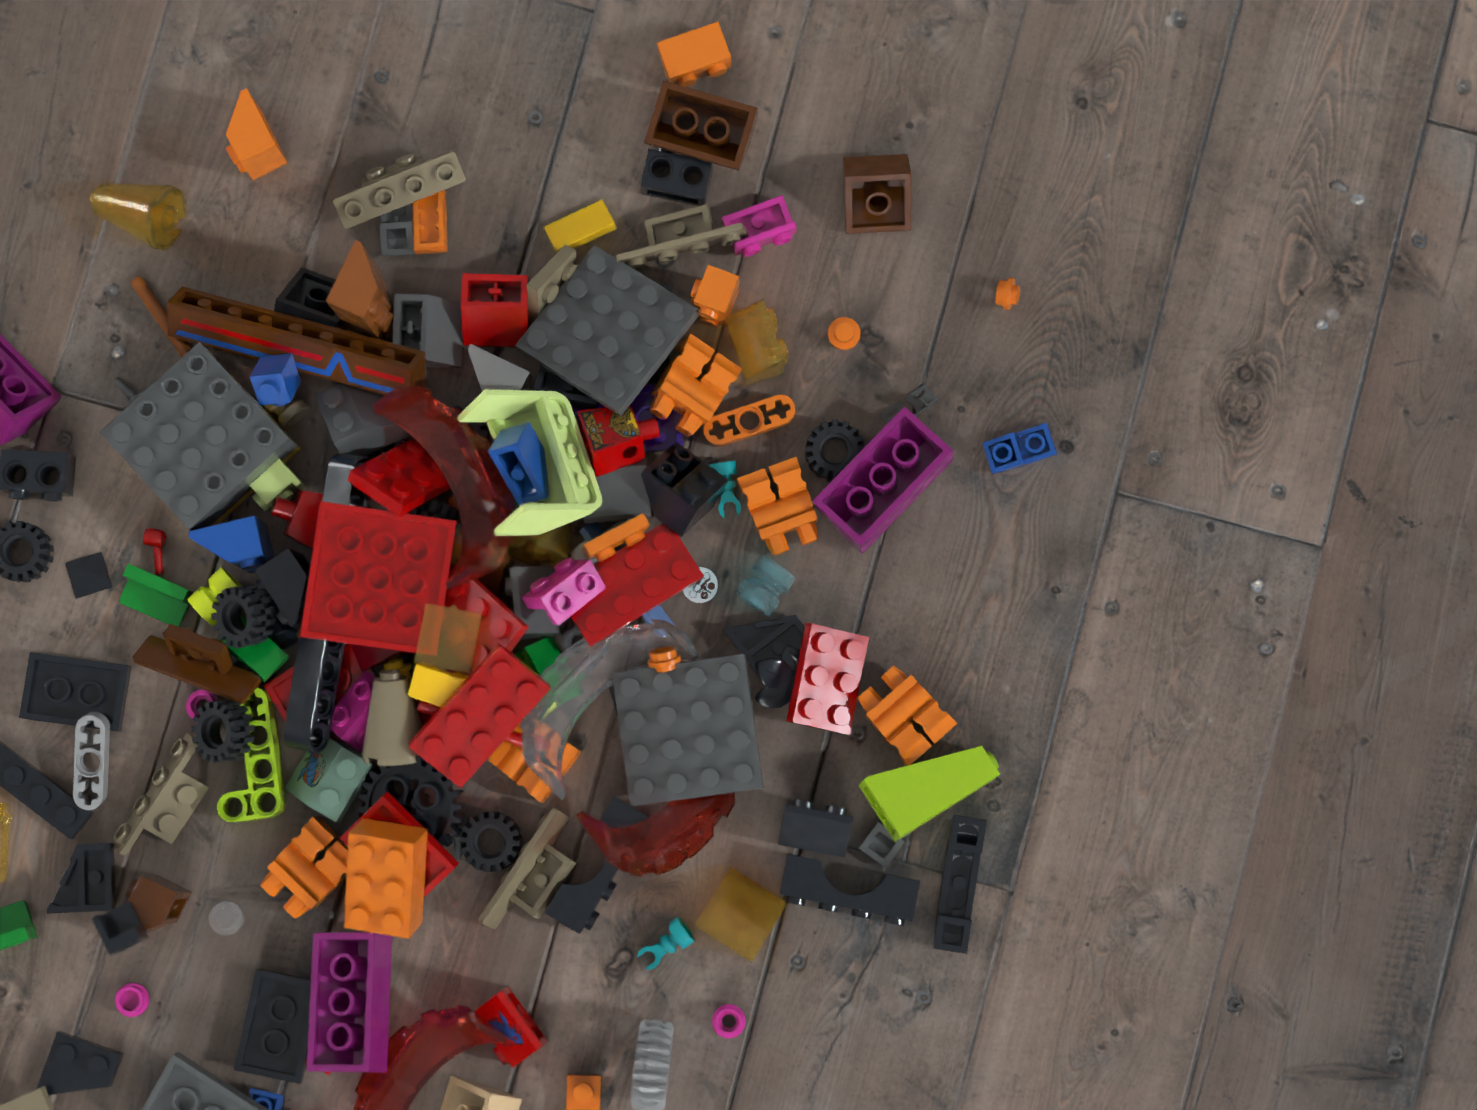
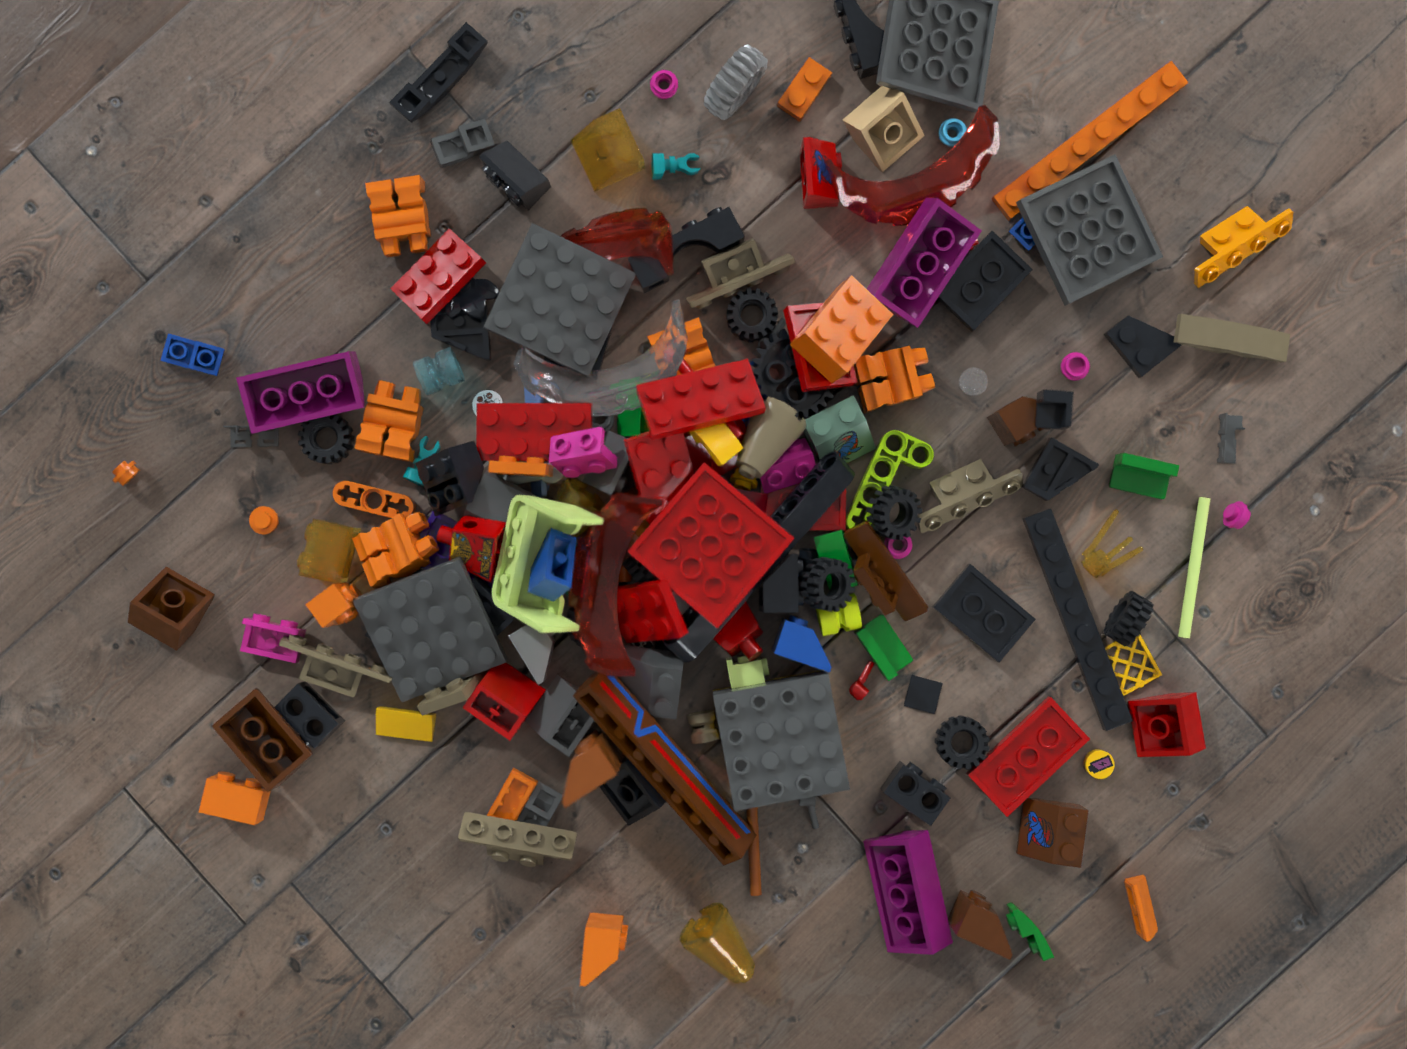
camera: 150 degrees left, 5 degrees up
(100, 784) = (990, 557): light grey beam -> none
(275, 379) = (696, 746): blue brick -> none
(448, 638) = (687, 468): clear yellow piece -> none
(663, 658) = (543, 361): orange plate -> none
(892, 896) = (494, 97): black arch -> none
(923, 790) = (422, 150): lime slope -> none

